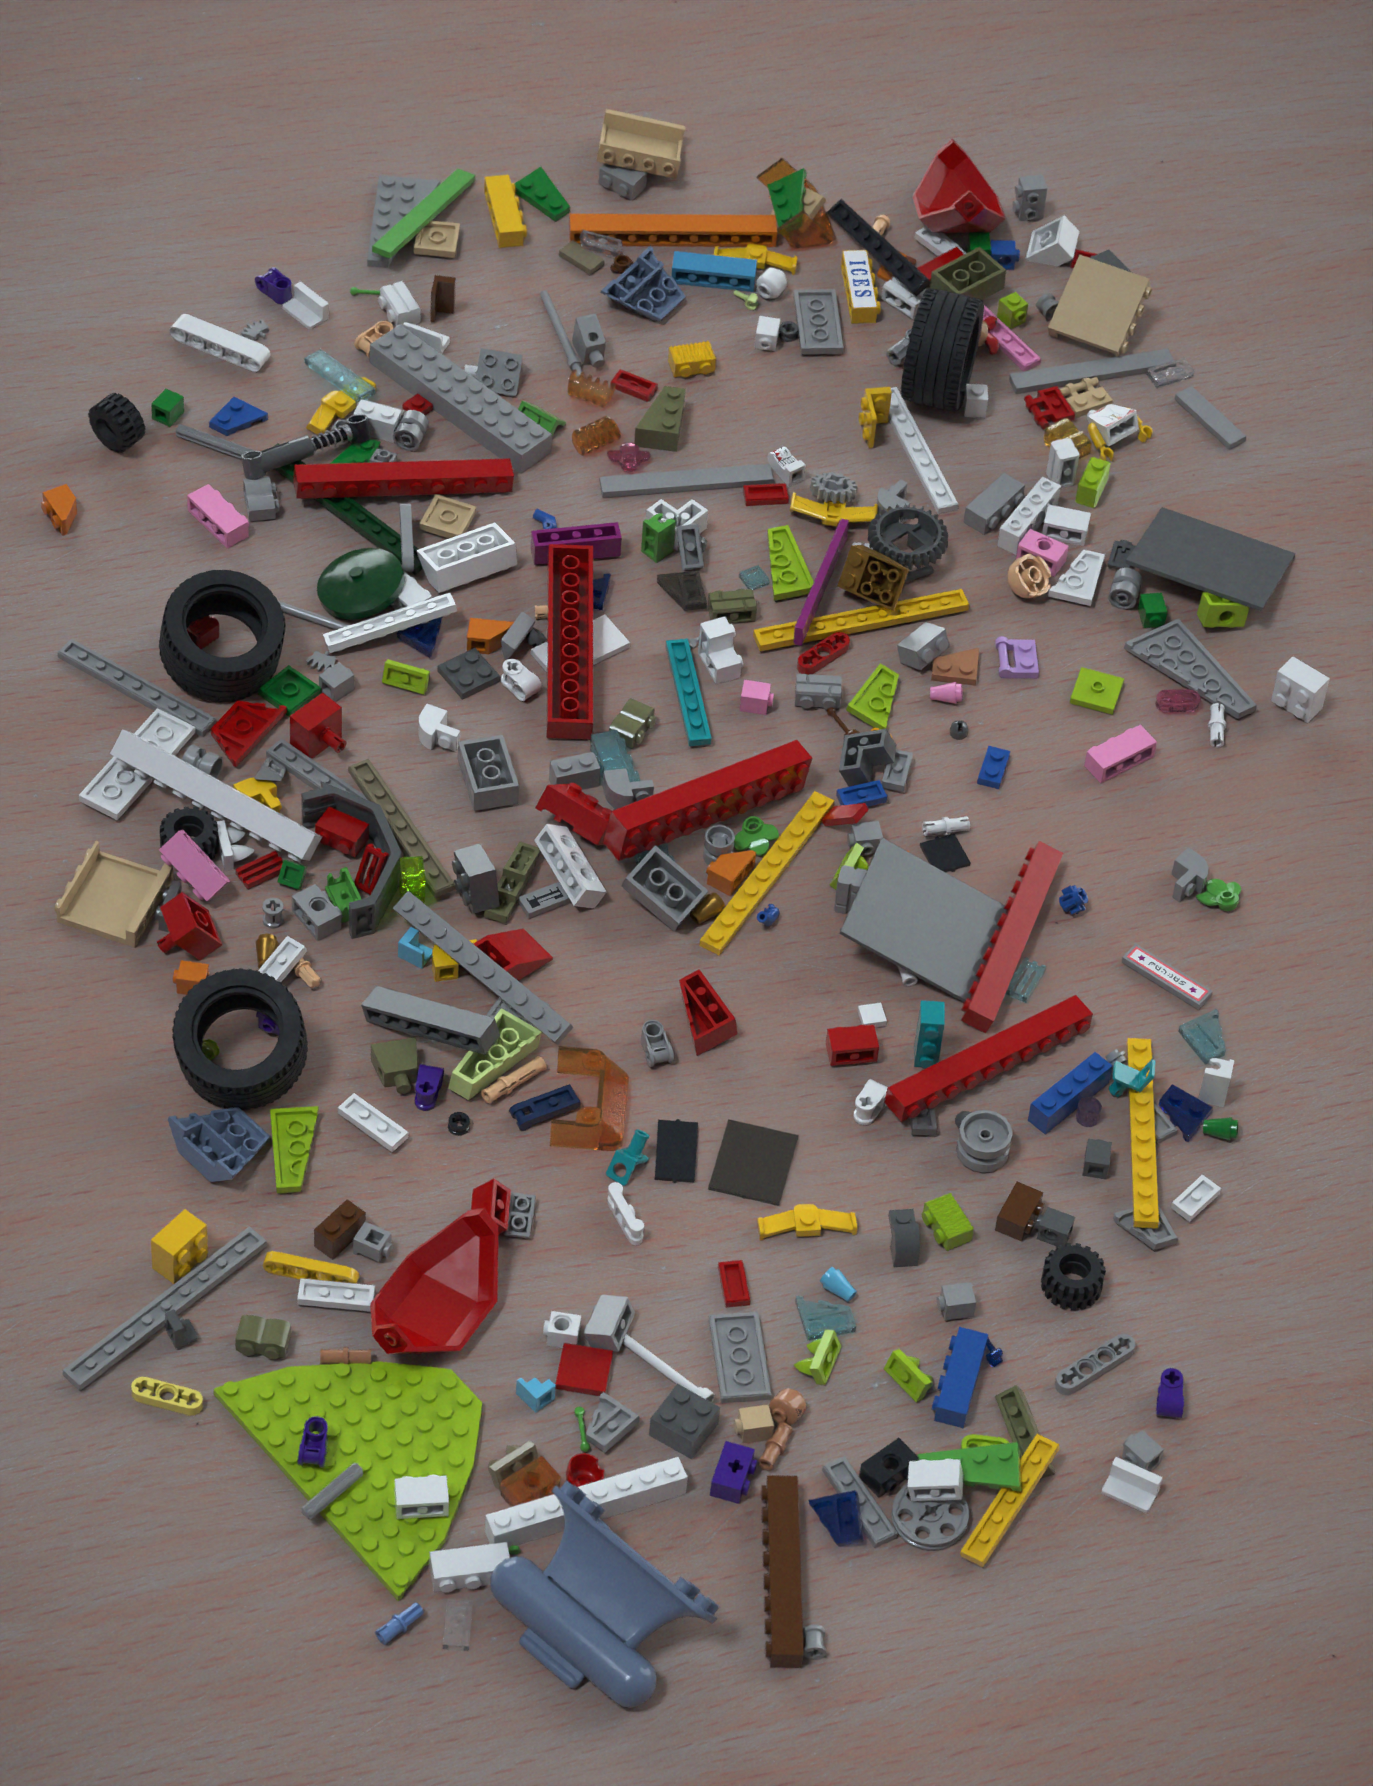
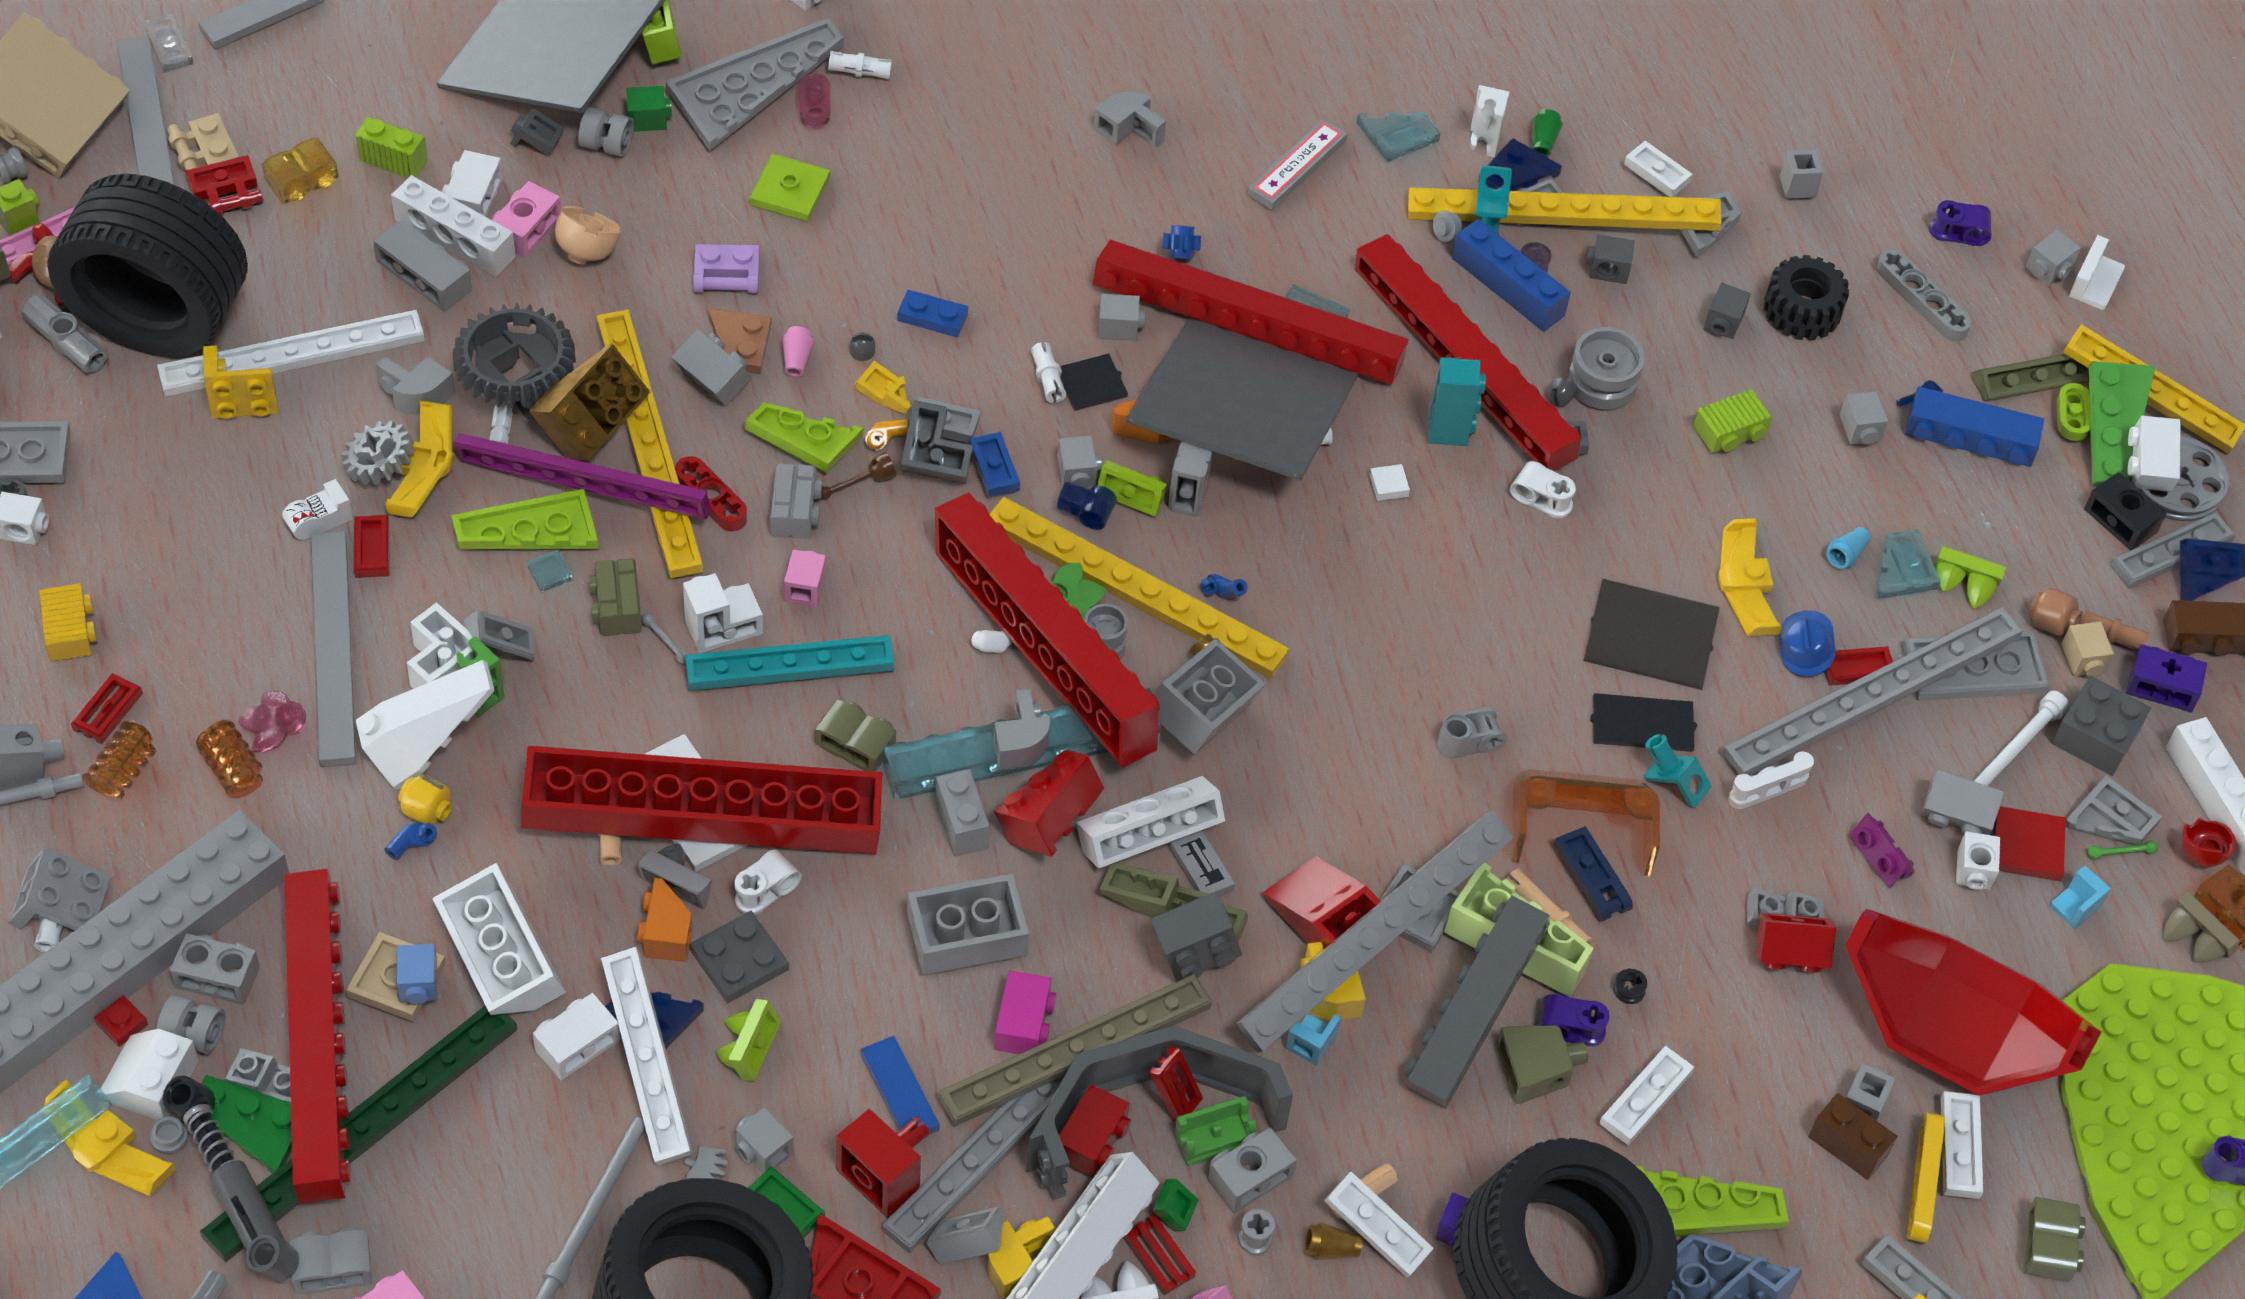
camera: 90 degrees left, 5 degrees up
(345, 1356) = (2065, 1133): nougat pin -> none
(360, 583) = (550, 1100): dark green dish -> none
(377, 747) = (898, 1084): none -> blue tile
(406, 537) = (457, 1026): light grey beam -> none
(412, 877) = (1205, 1016): clear neon green brick -> none
(427, 803) = (1023, 1012): none -> dark pink brick
(434, 729) = (865, 1006): white brick -> none
(441, 517) = (417, 973): none -> medium blue brick
(450, 438) = (212, 975): none -> light grey brick
(541, 416) = (174, 835): bright green panel -> none
(563, 1280) = (1880, 852): none -> magenta hinge
(571, 518) = (425, 799): none -> yellow head
(603, 537) = (479, 791): magenta brick -> none
(617, 505) = (411, 726): none -> white wedge
(662, 421) = (205, 661): olive wedge -> none
(685, 589) = (575, 656): clear smoke wing -> none
(704, 1281) = (1872, 692): none -> light grey plate
(706, 1013) = (1417, 667): red wedge -> none
(730, 870) = (1149, 626): orange slope -> none
(750, 1248) = (1807, 643): none -> blue piece
(832, 844) = (1090, 505): none -> clear blue piece
(845, 814) = (1042, 479): red tile -> none
(852, 1045) = (1455, 500): red brick -> none
(905, 1238) = (1775, 462): dark grey brick -> none
(907, 1374) = (1980, 482): lime tile -> none
(925, 740) = (884, 388): none -> yellow slope
(999, 864) = (1120, 317): none -> light grey brick
(1019, 1211) = (1706, 346): reddish brown brick -> none
(1063, 462) = (359, 171): white brick -> none
(1080, 580) = (577, 181): white wing -> none
(1113, 424) = (282, 115): white torso -> none
(1120, 753) = (914, 169): bright pink brick -> none
(1199, 1284) = (1801, 173): none -> light grey brick
(1220, 894) = (1162, 98): bright green plate -> none

